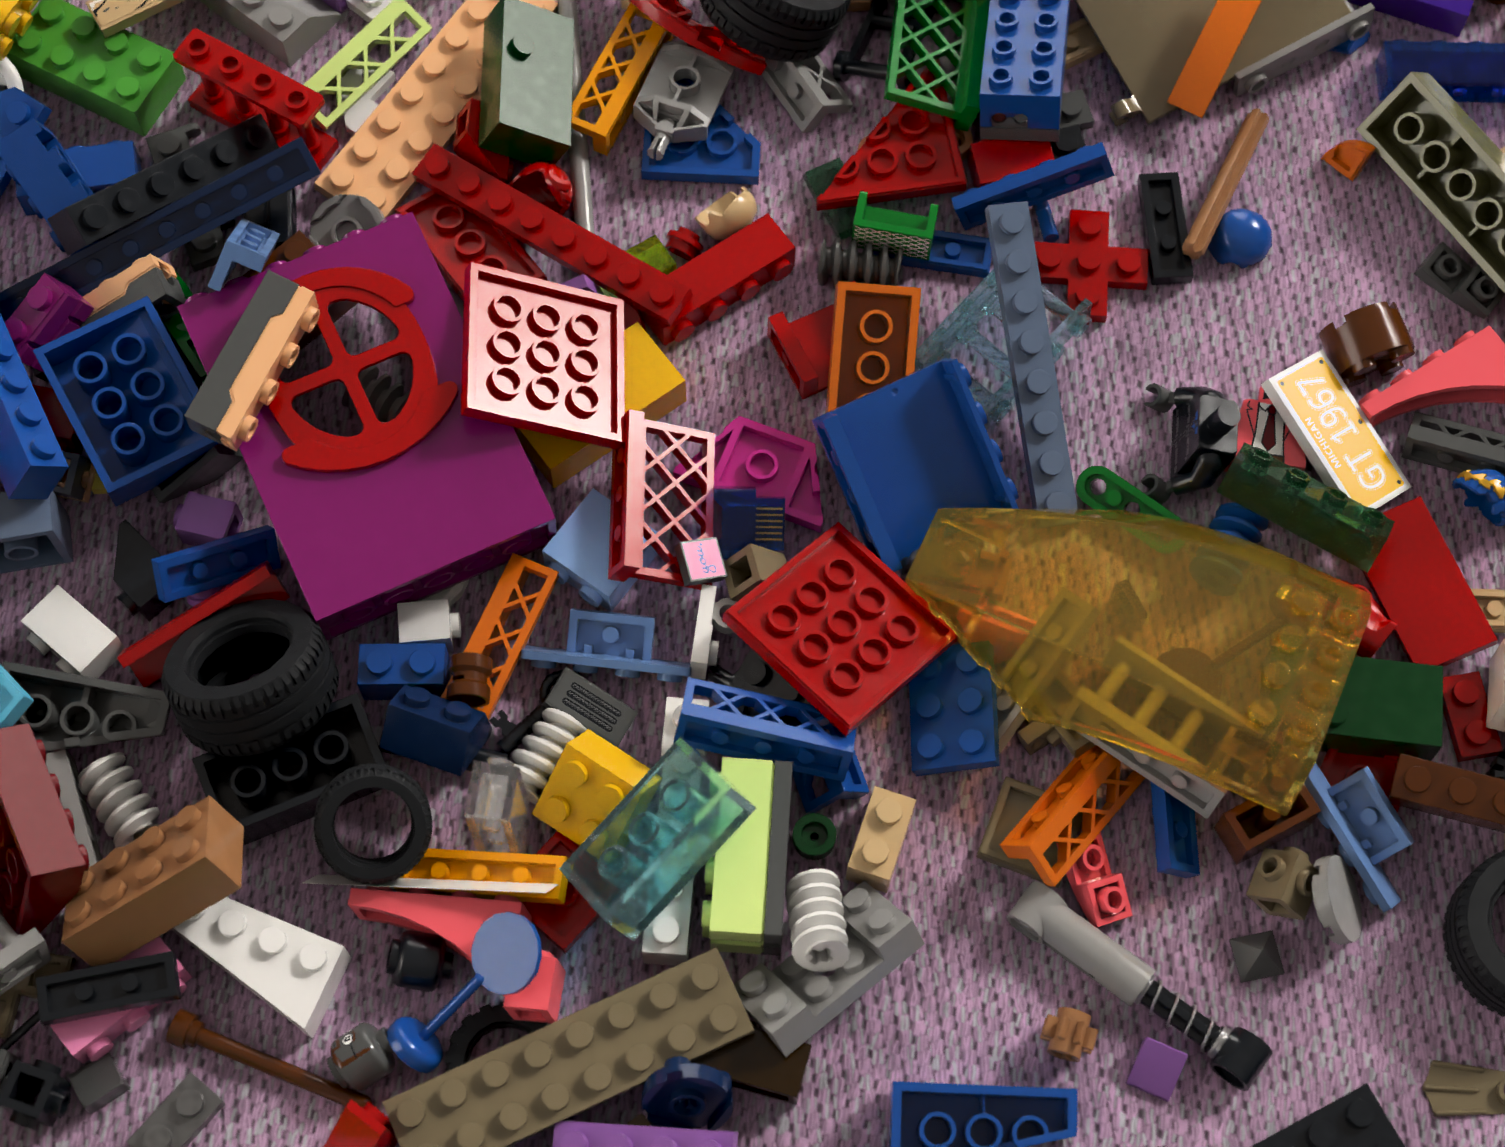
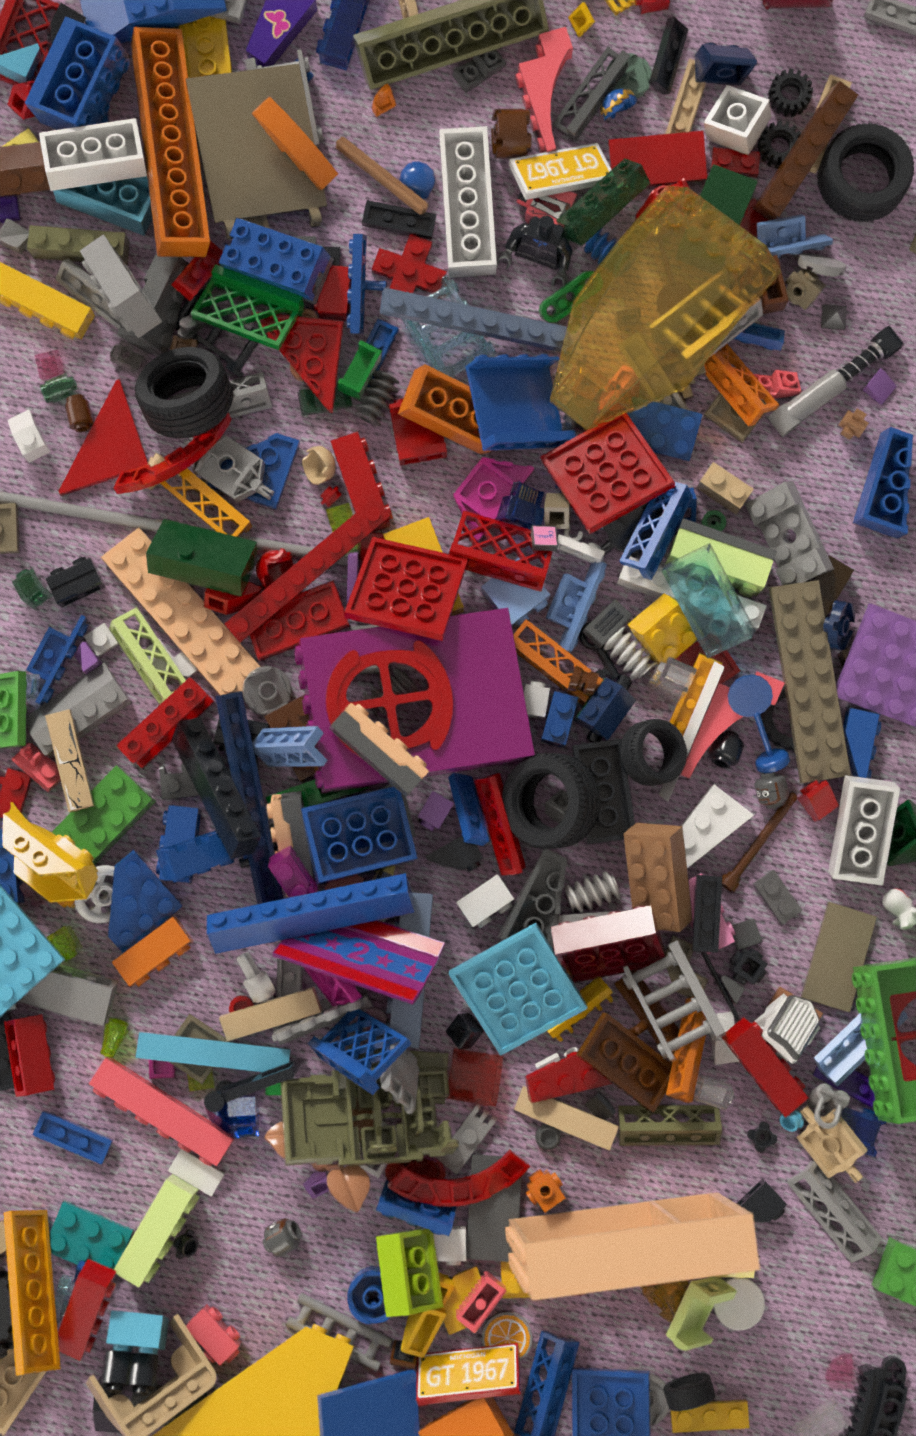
camera: 75 degrees left, 15 degrees up
(817, 920) = (768, 534): white piece -> none
(1228, 311) = (467, 202): none -> white brick

